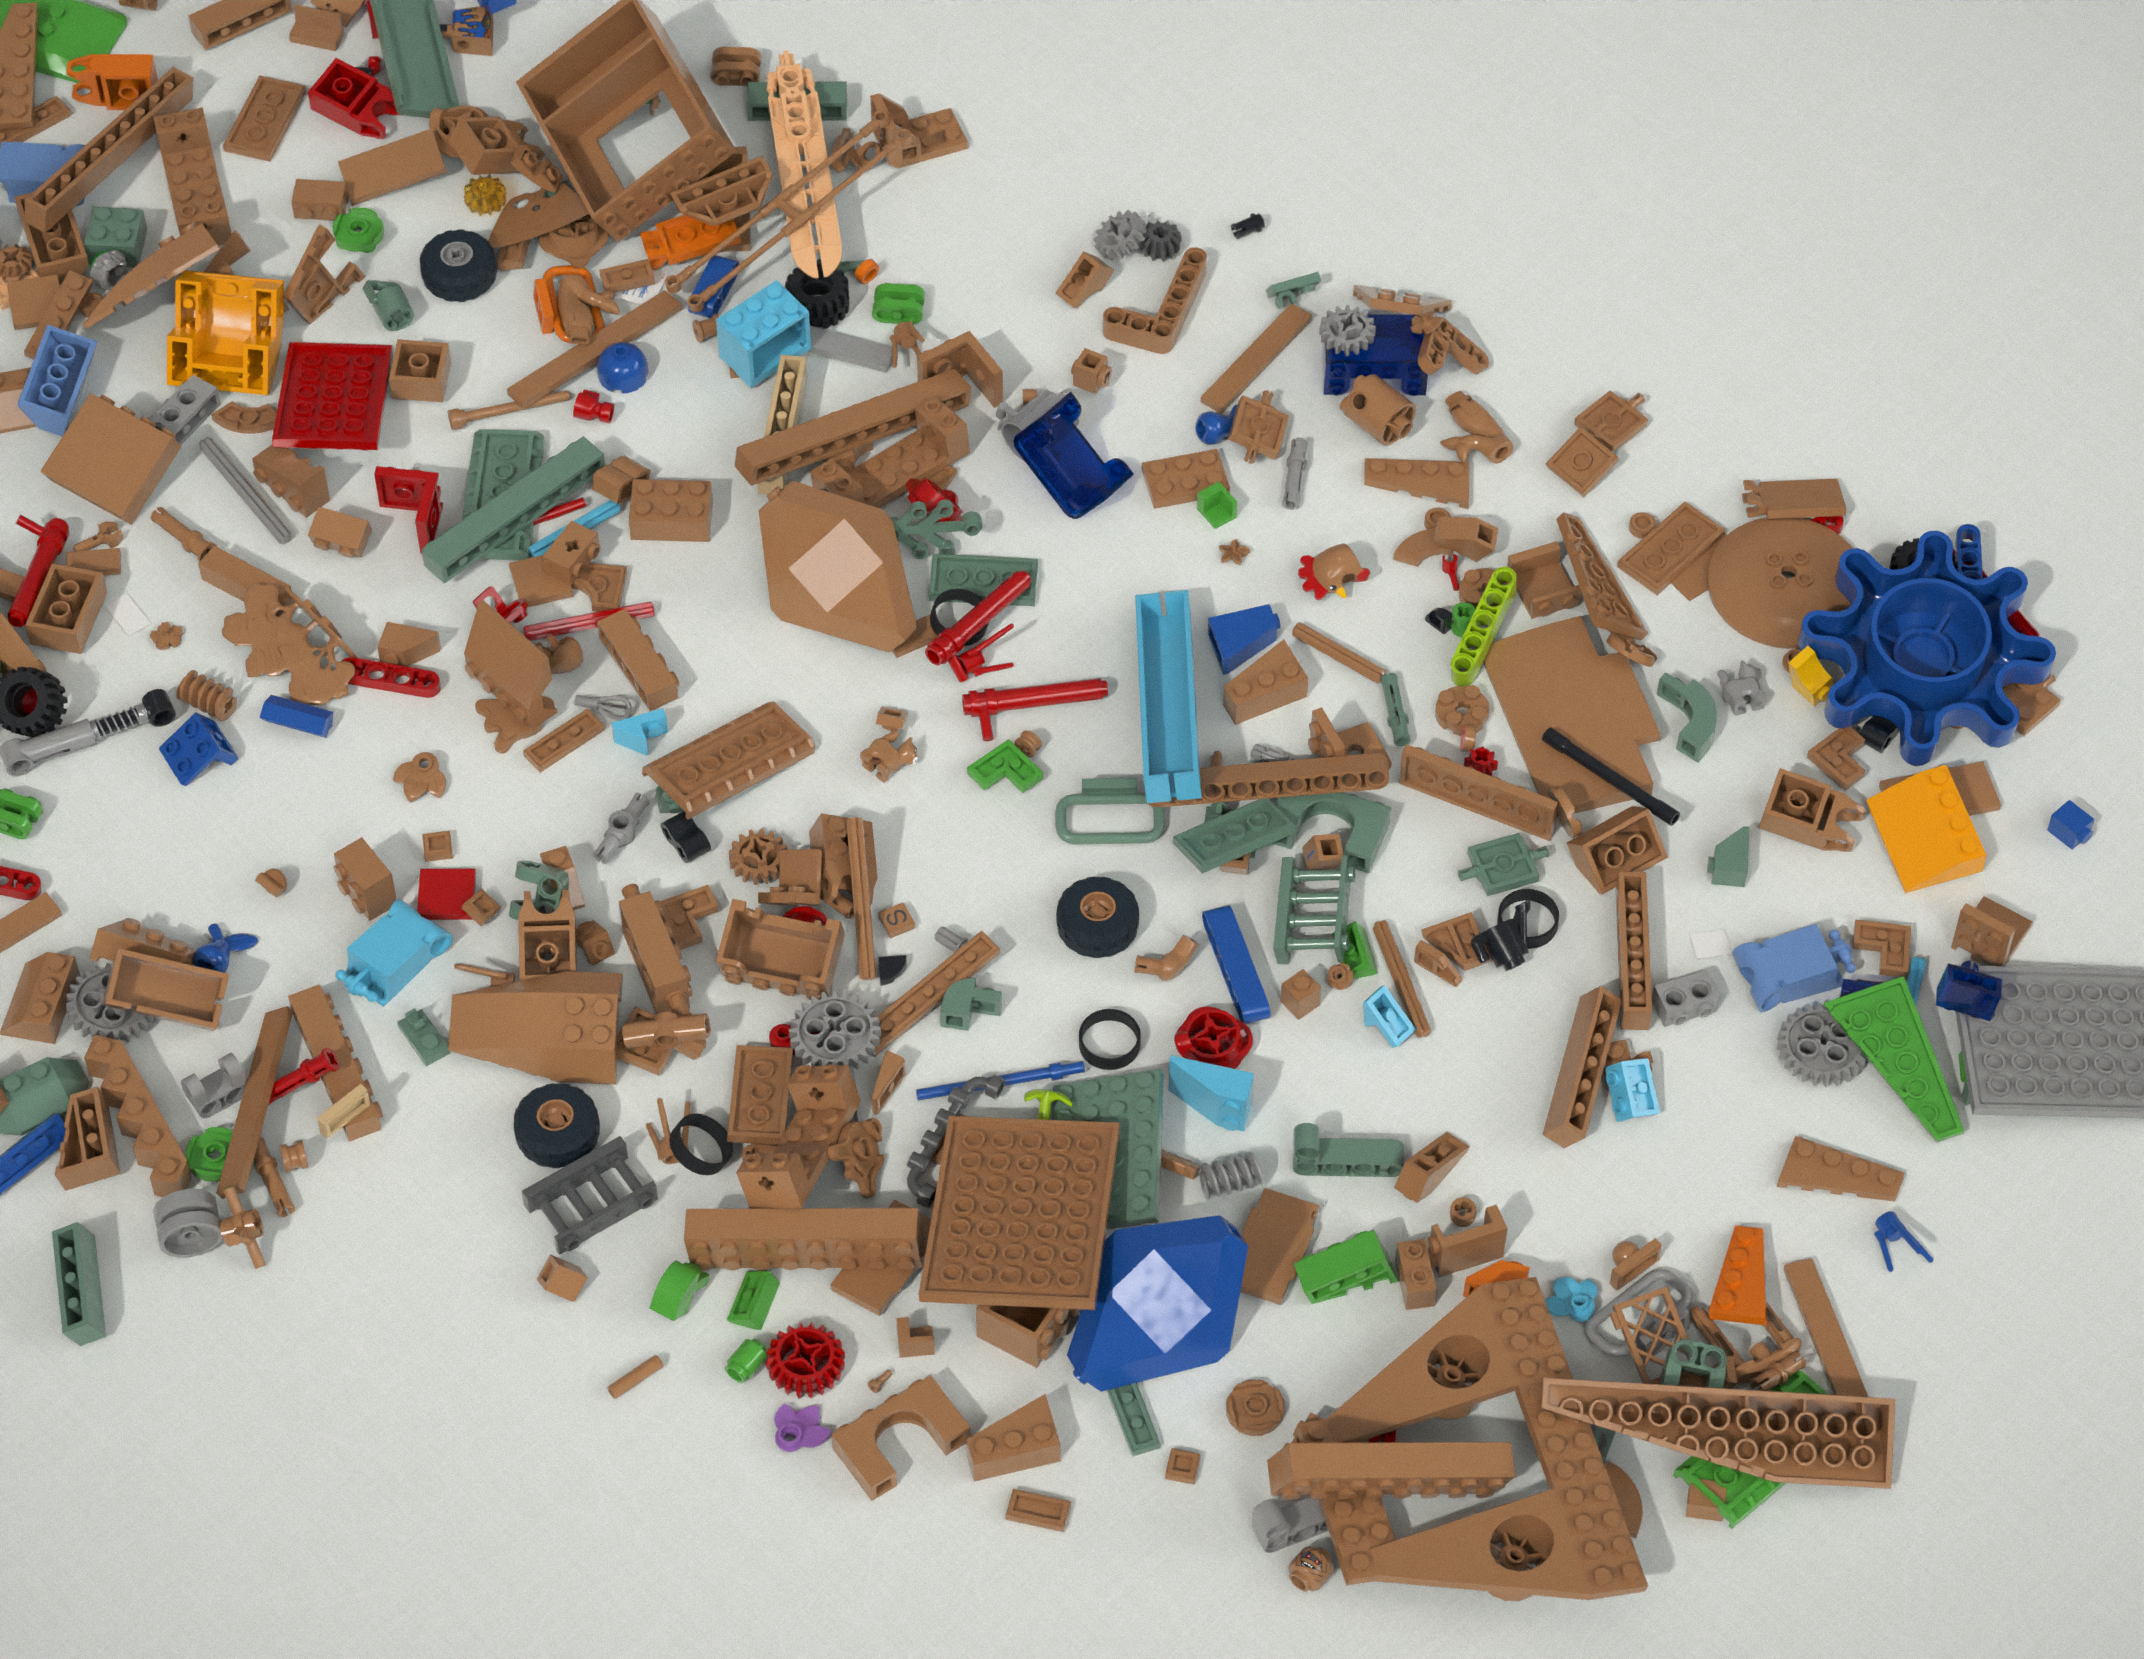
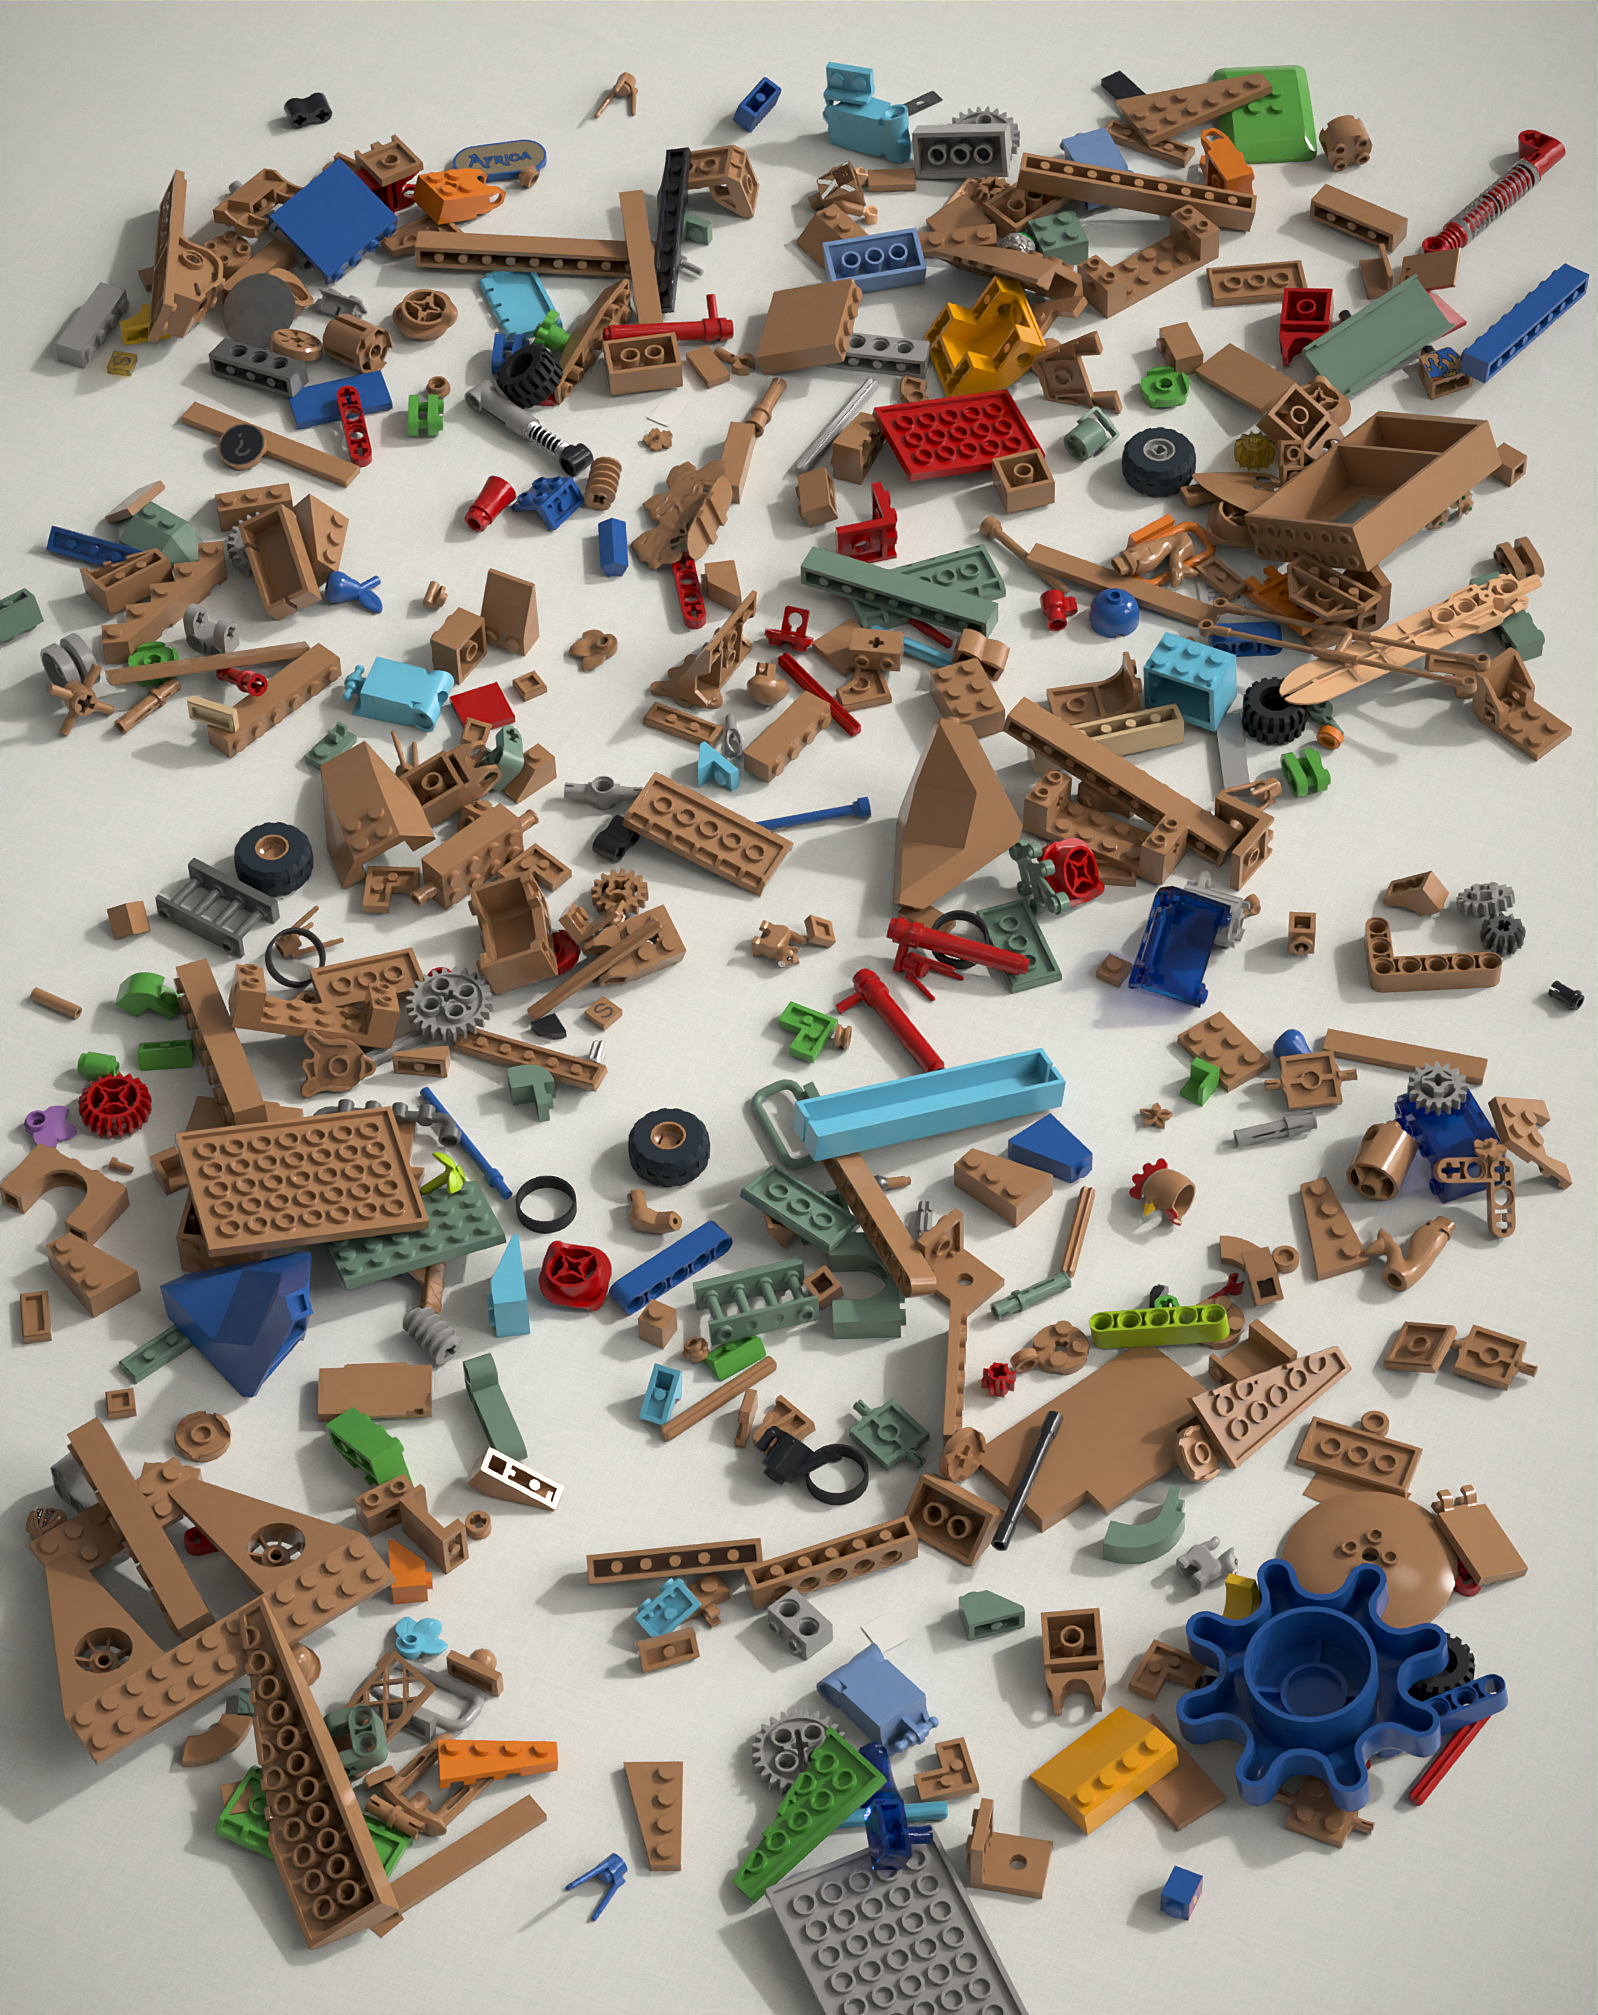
camera: 70 degrees right, 5 degrees down
(173, 794) = (489, 503): none -> red plant
(294, 1156) = (171, 710): medium nougat wheel -> none
(354, 813) = (510, 612): none -> medium nougat slope
(670, 1031) = (393, 893): medium nougat piece -> none
(729, 409) = (1098, 699): none -> medium nougat bracket
(753, 636) = (858, 808): none -> blue piece
(1051, 521) = (1114, 970): none -> medium nougat plate
(1286, 288) = (1498, 1046): sand green plate -> none
(1671, 1106) = (668, 1649): none -> medium nougat plate

